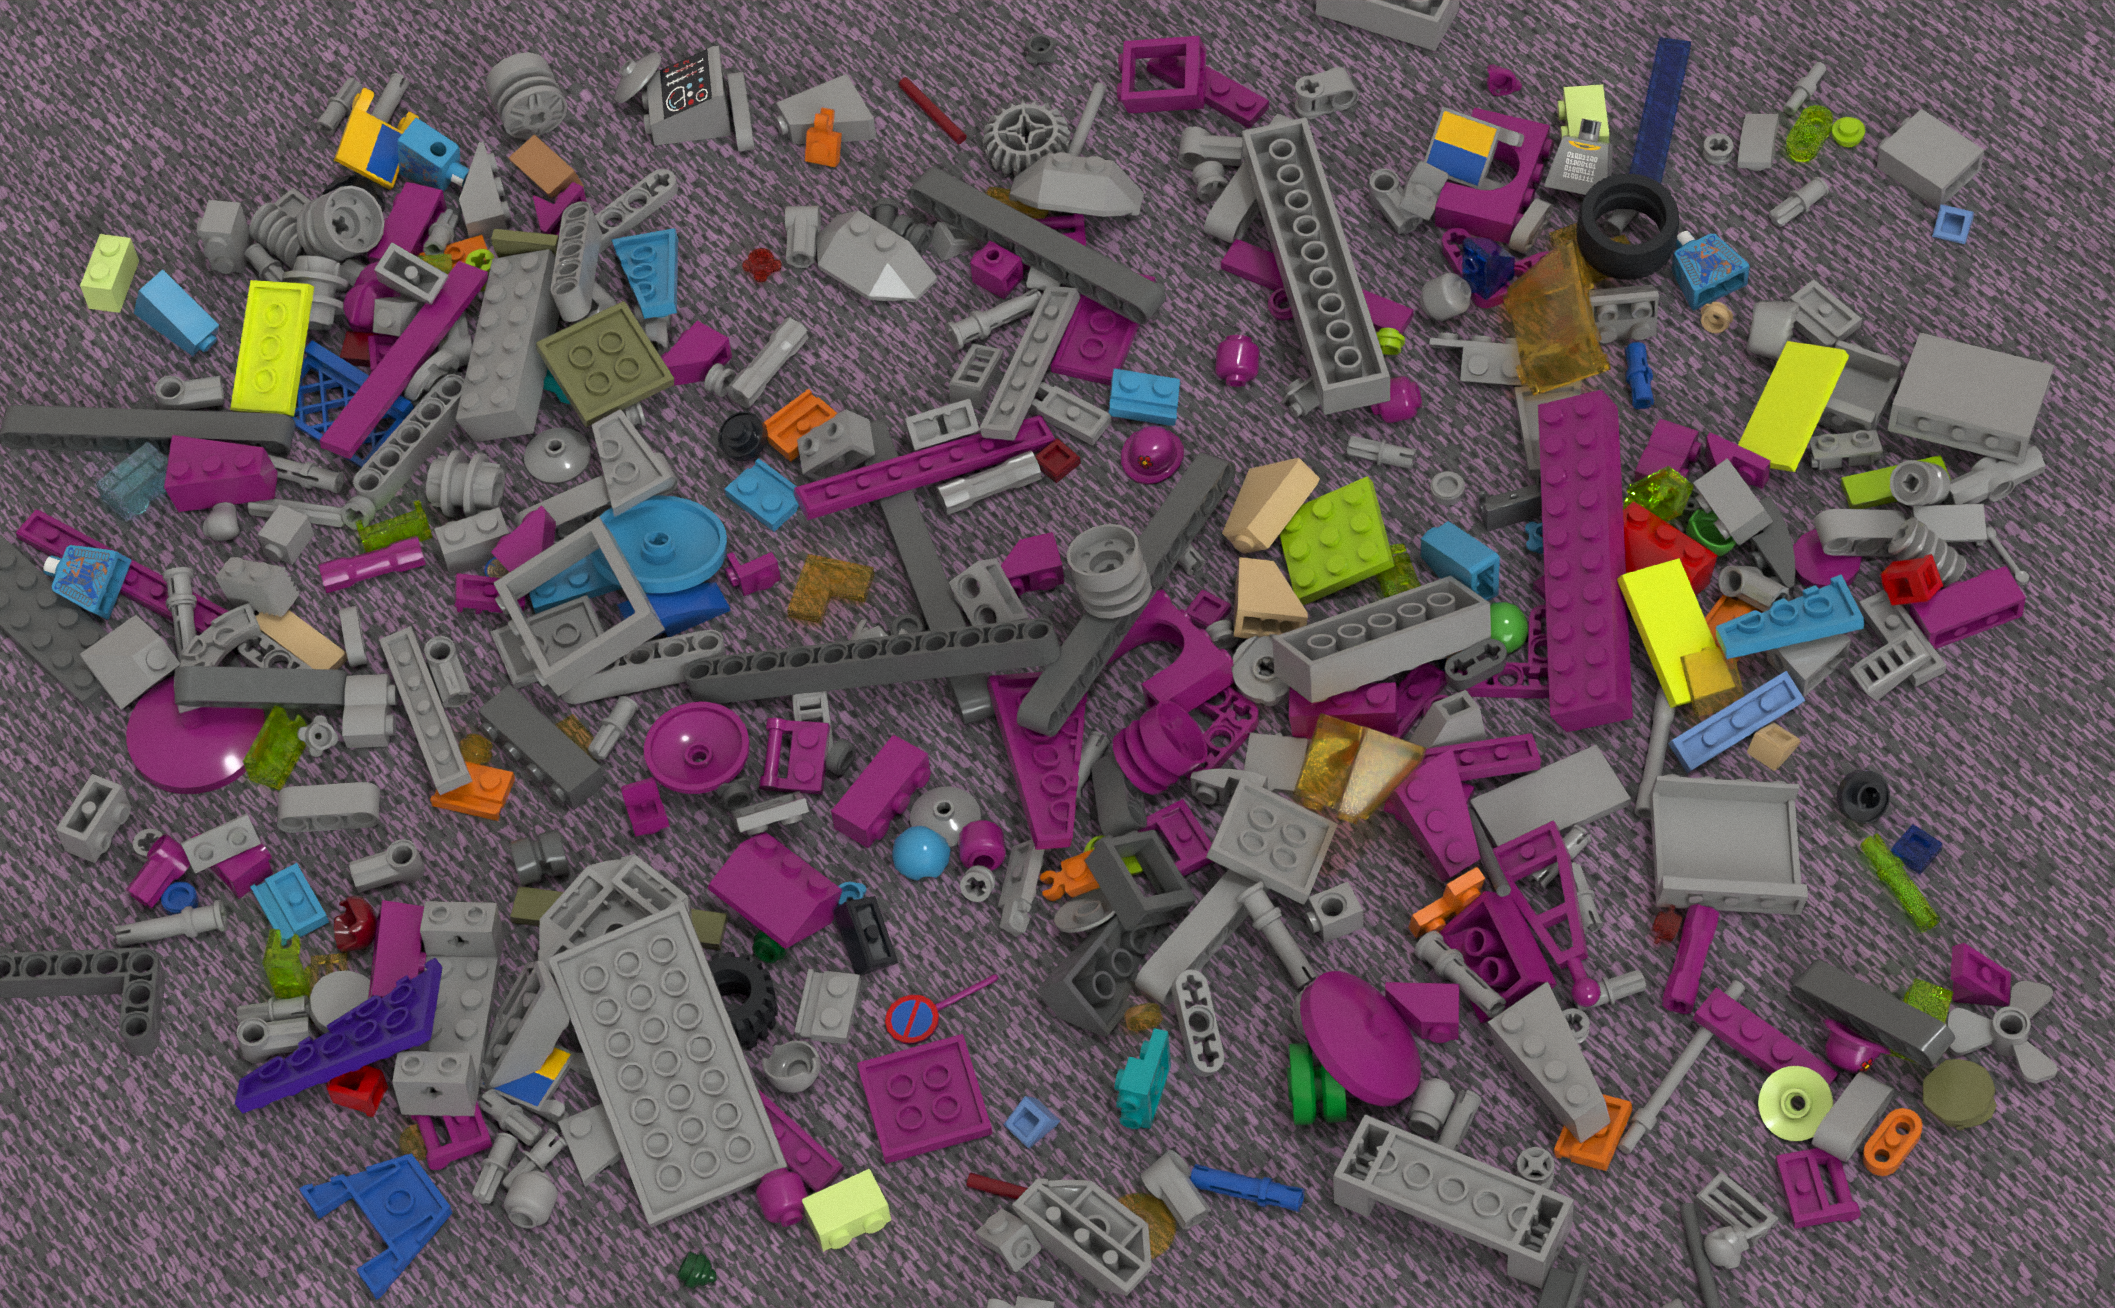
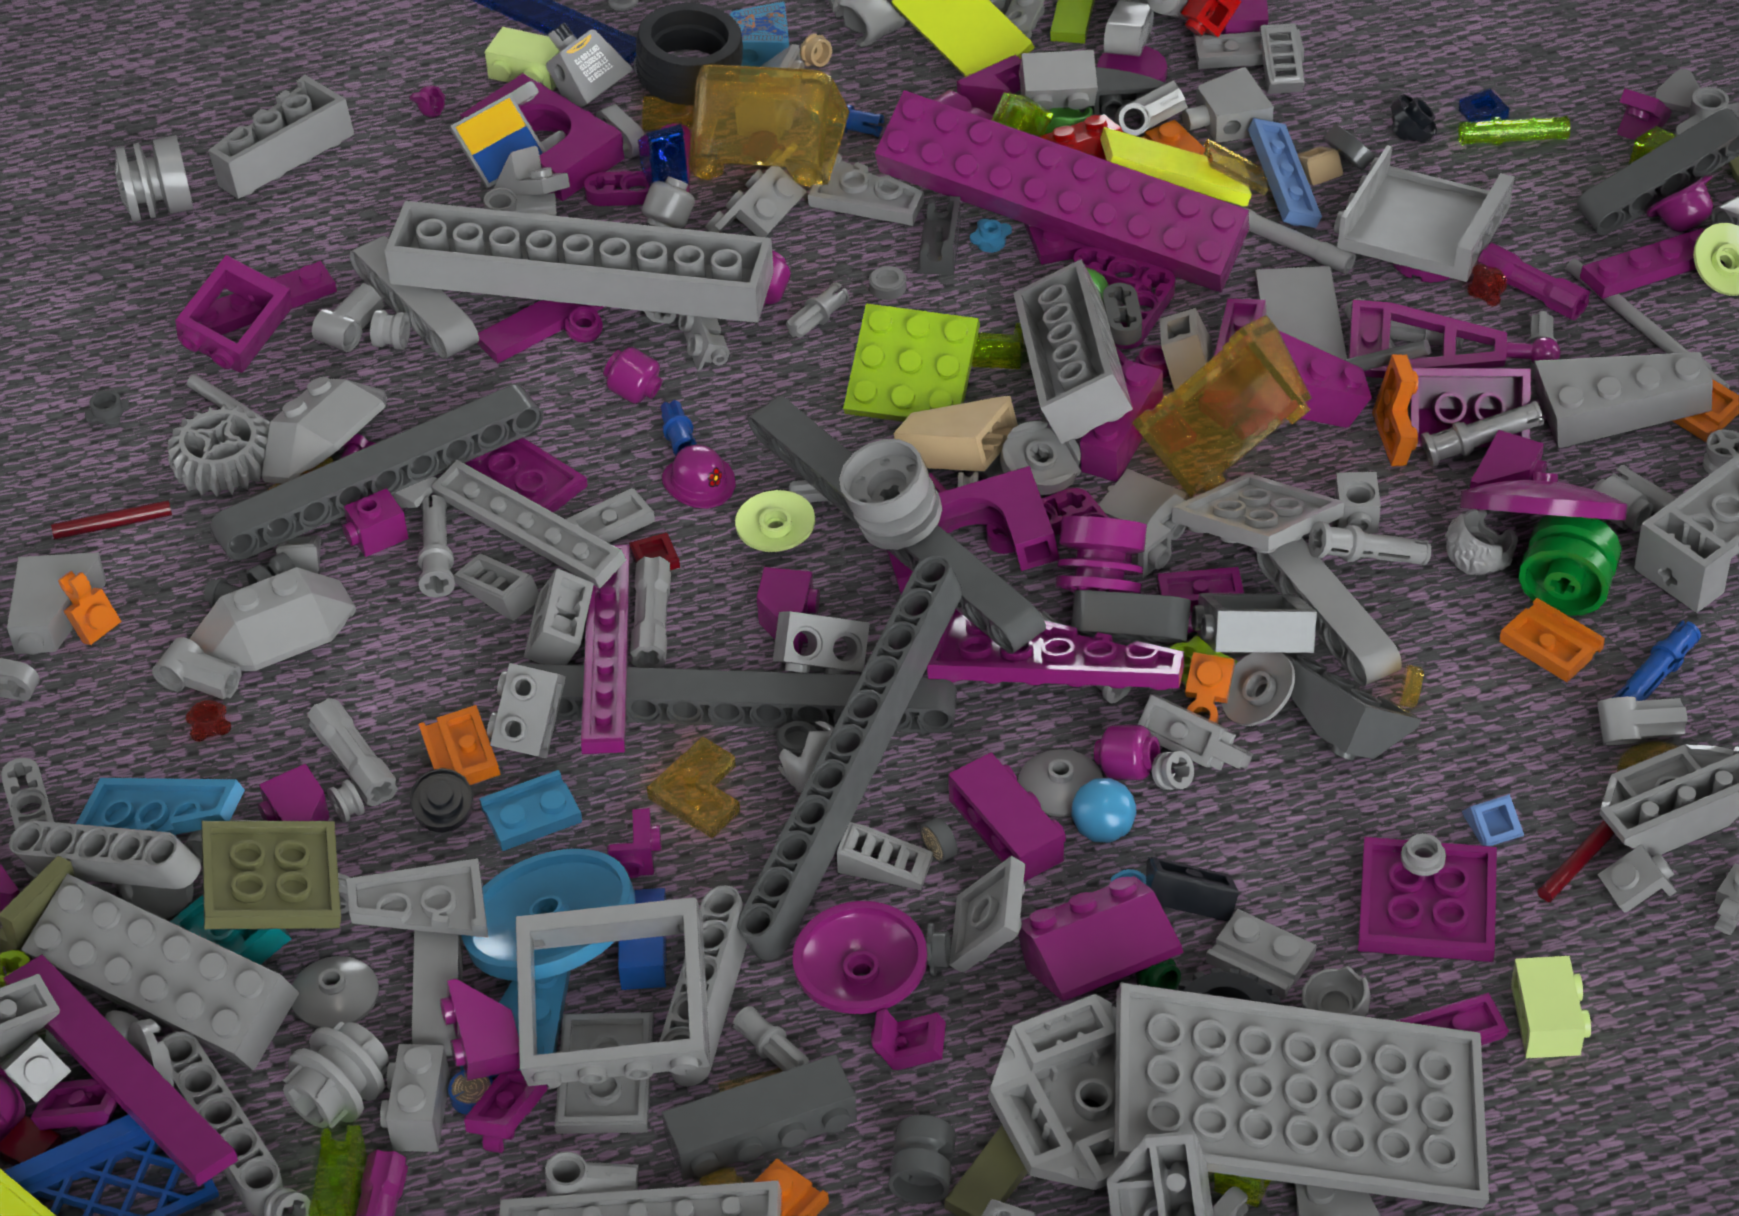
camera: 70 degrees left, 10 degrees down
(696, 1270) = (1565, 1175): dark green plate -> none
(781, 1197) = (1511, 1057): magenta head -> none
(806, 758) = (919, 869): magenta plate -> none
(916, 1018) = (1310, 883): piece -> none
(950, 1067) = (1423, 846): none -> light grey plate
(1121, 509) = (775, 521): none -> yellowish green dish
(1143, 1082) = (1507, 692): teal plate -> none
(1144, 397) = (625, 459): dark azure plate -> none
(1195, 415) = (677, 426): none -> blue axle
(1213, 1046) = (1444, 640): light grey beam -> none
(1245, 1102) = (1552, 640): none -> orange plate
(1268, 503) = (835, 395): tan slope -> none
(1327, 91) = (347, 217): light grey piece -> none
(1460, 555) = (988, 284): dark azure slope -> none
(1799, 754) = (1349, 147): none -> dark grey beam
(1803, 619) = (1212, 85): dark azure wing -> none

